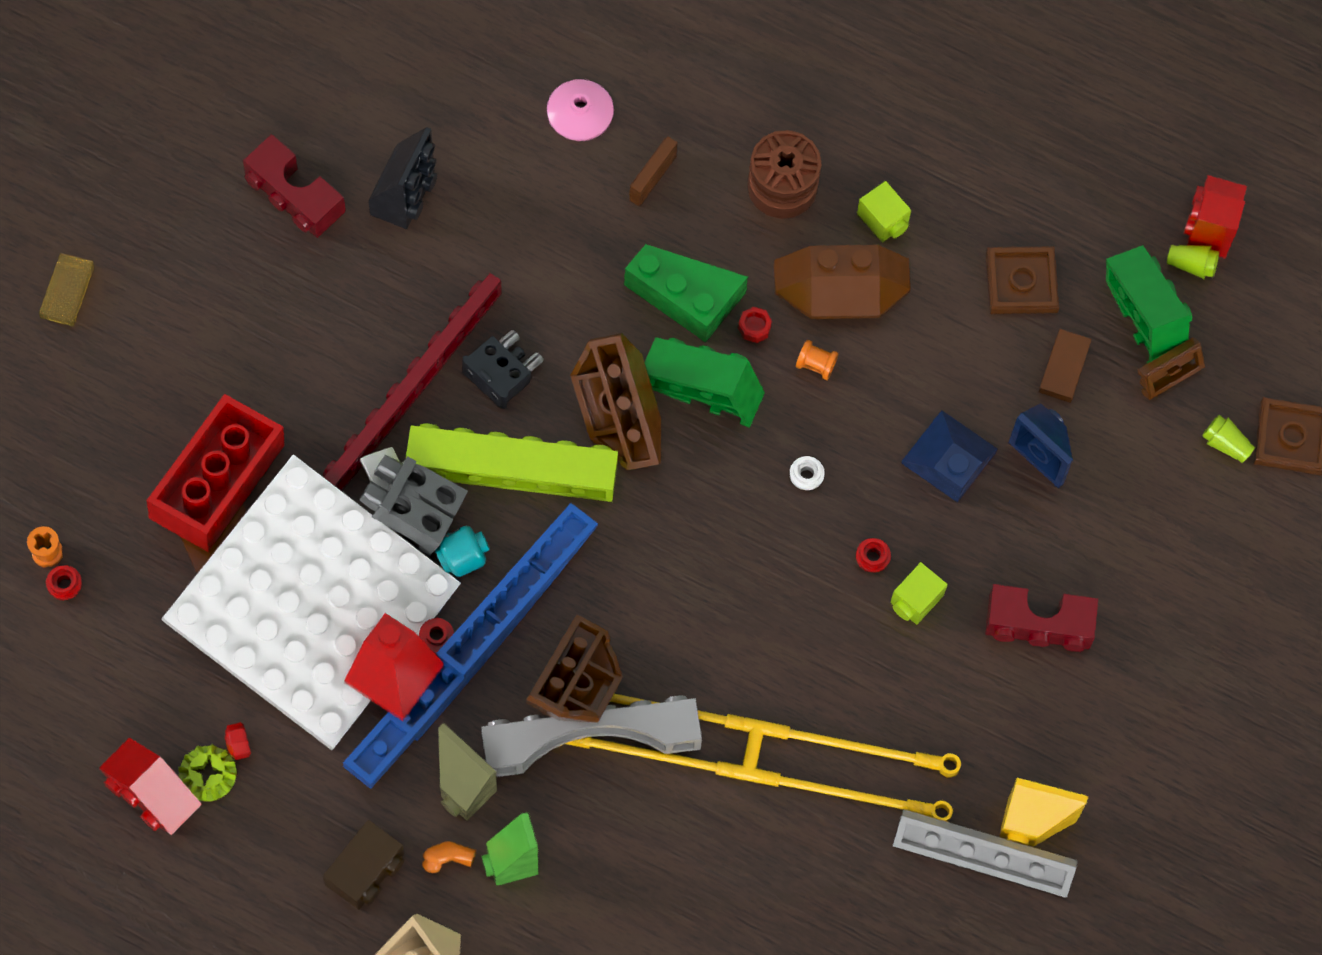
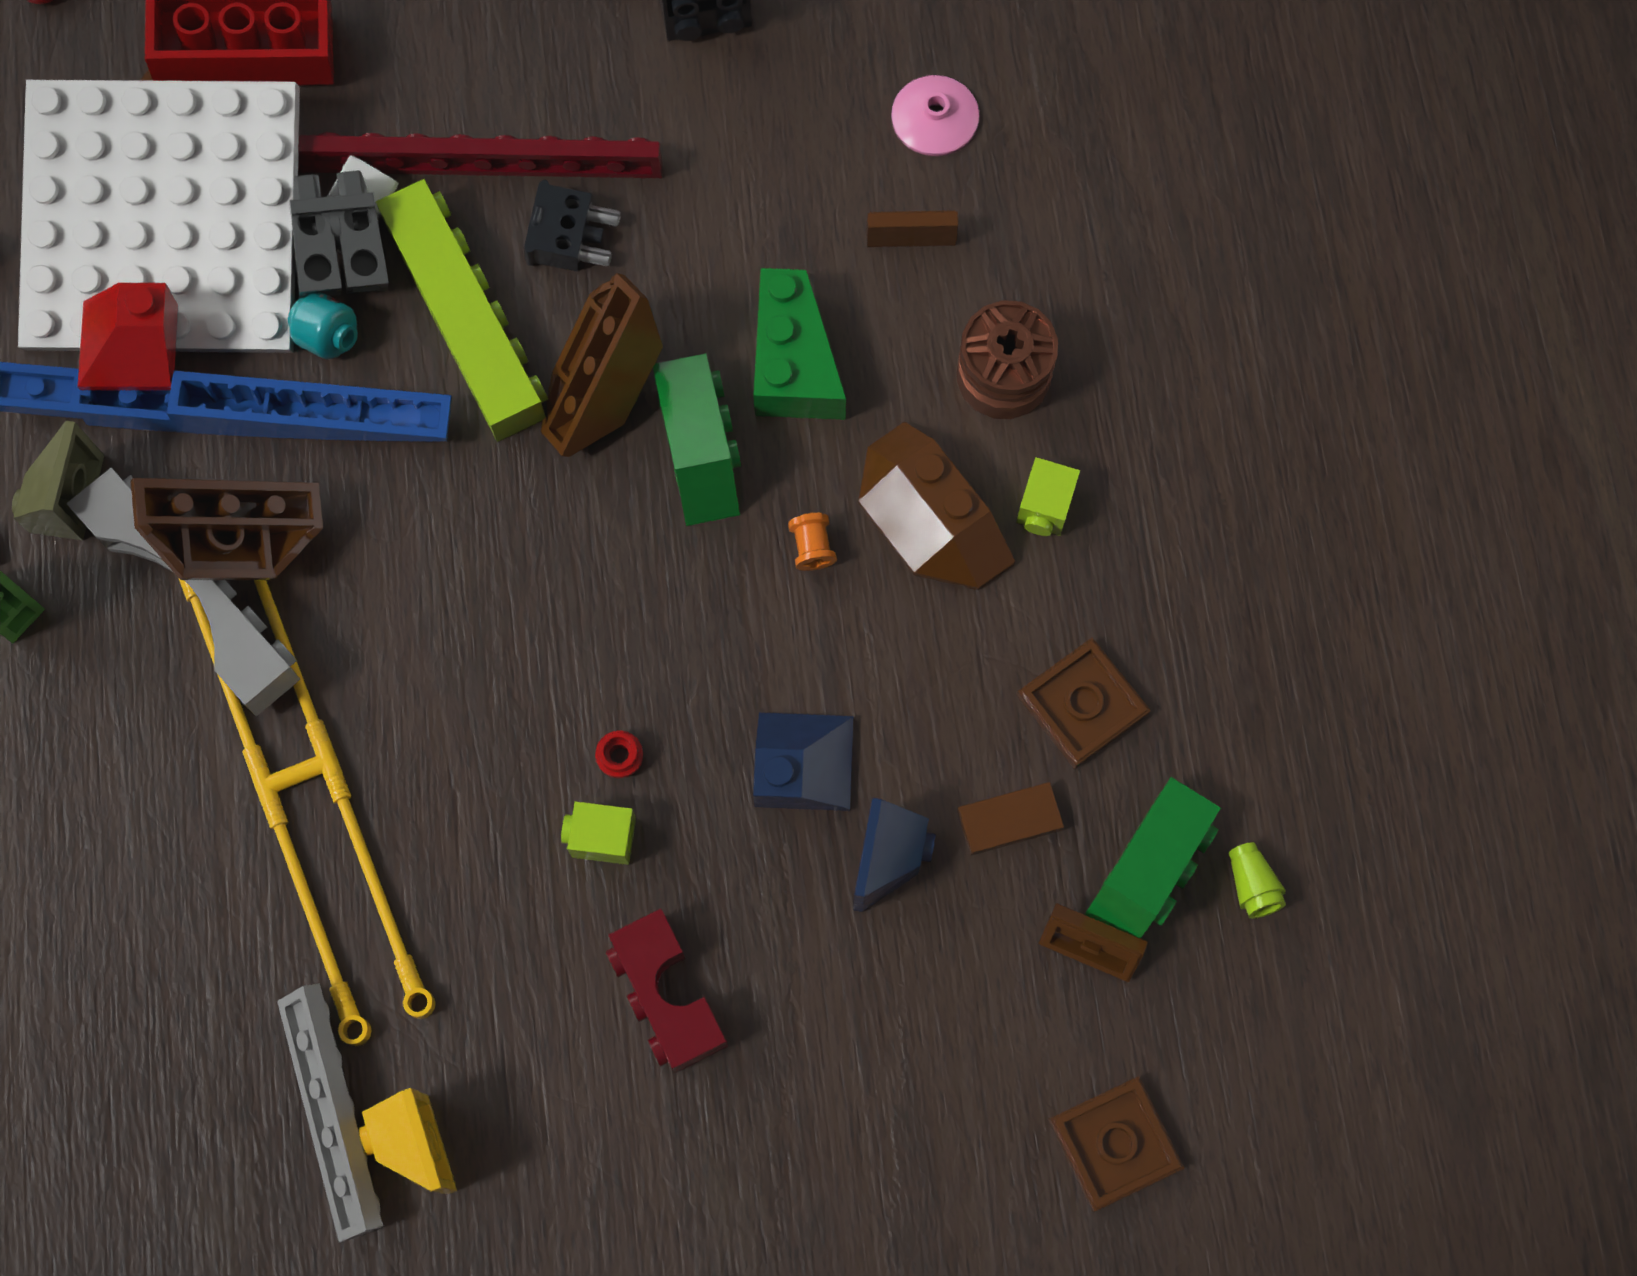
camera: 60 degrees right, 5 degrees up
(436, 624) = (227, 361): red plate -> none
(755, 324) = (808, 450): red tile -> none
(810, 464) = (666, 606): white plate -> none
(1215, 214) = (1329, 868): red brick -> none
(1227, 438) = (1051, 1068): lime cone -> none

